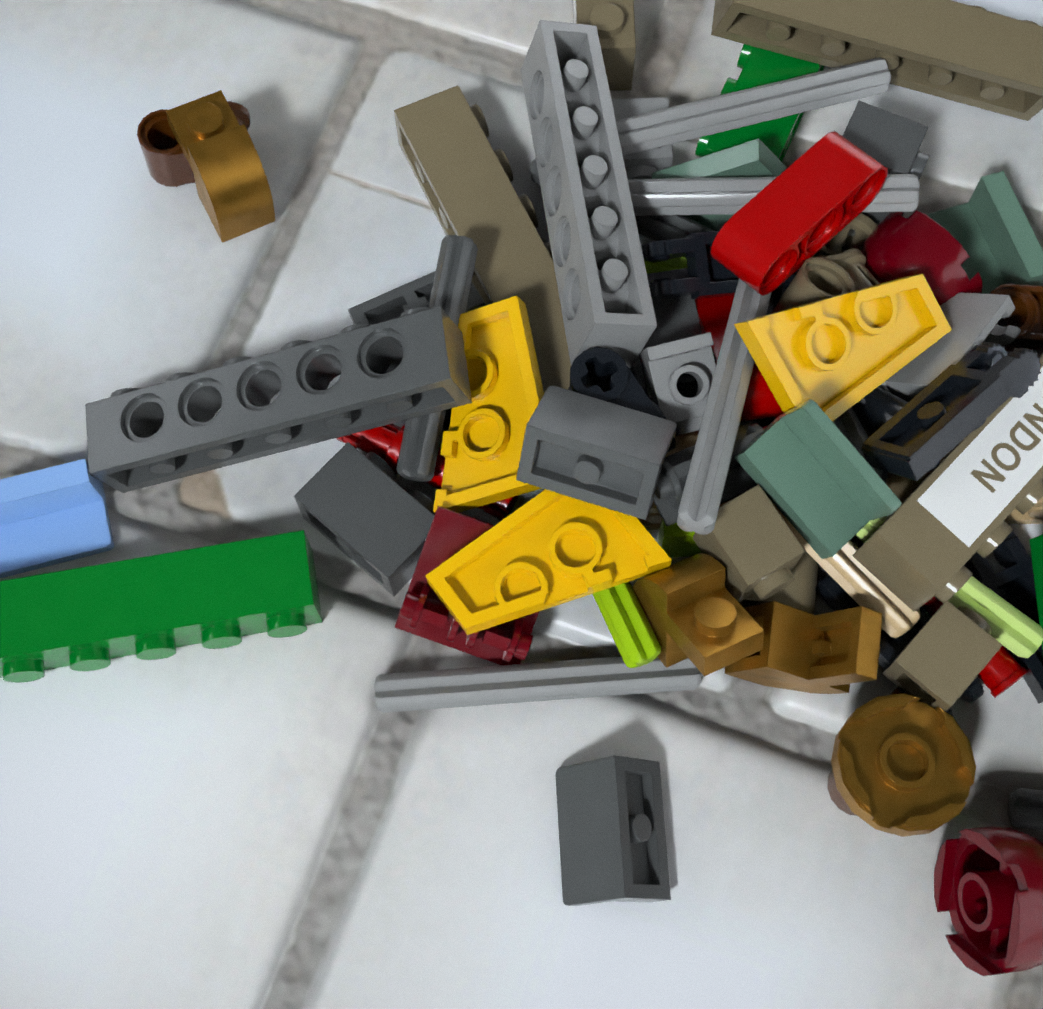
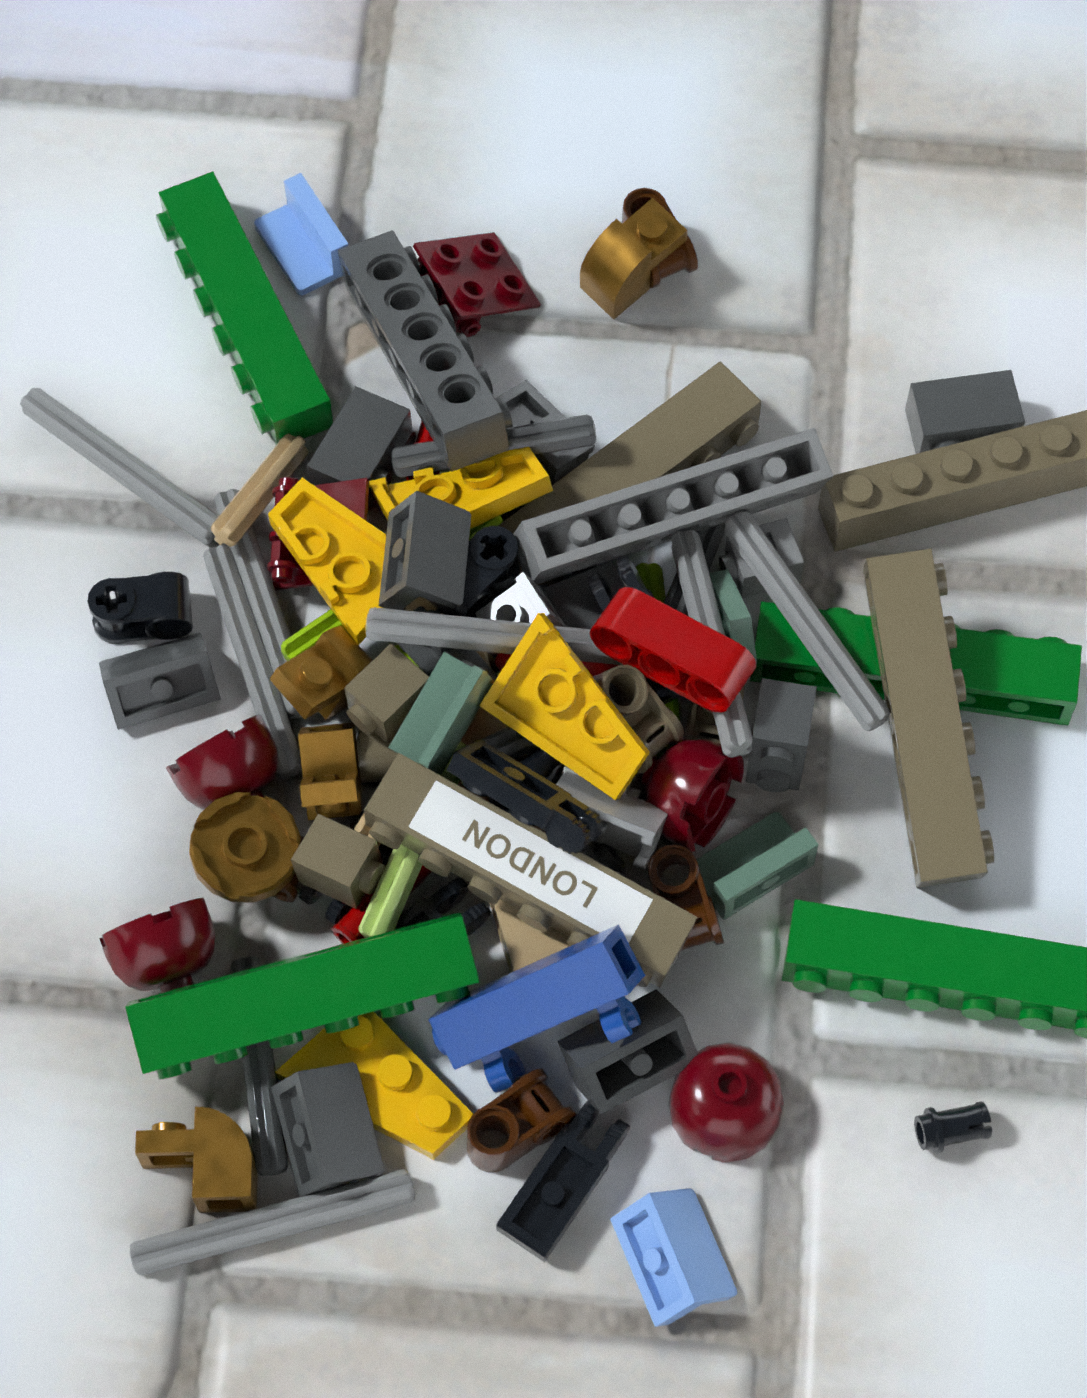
camera: 75 degrees right, 5 degrees down
(173, 337) = (474, 279): none -> dark red hinge
(285, 820) = (119, 464): none -> light grey axle
(395, 648) = (258, 490): none -> tan axle
(515, 821) = (146, 605): none -> black piece
(614, 712) = (252, 656): none -> light grey axle
(768, 768) = (227, 764): none -> dark red cylinder

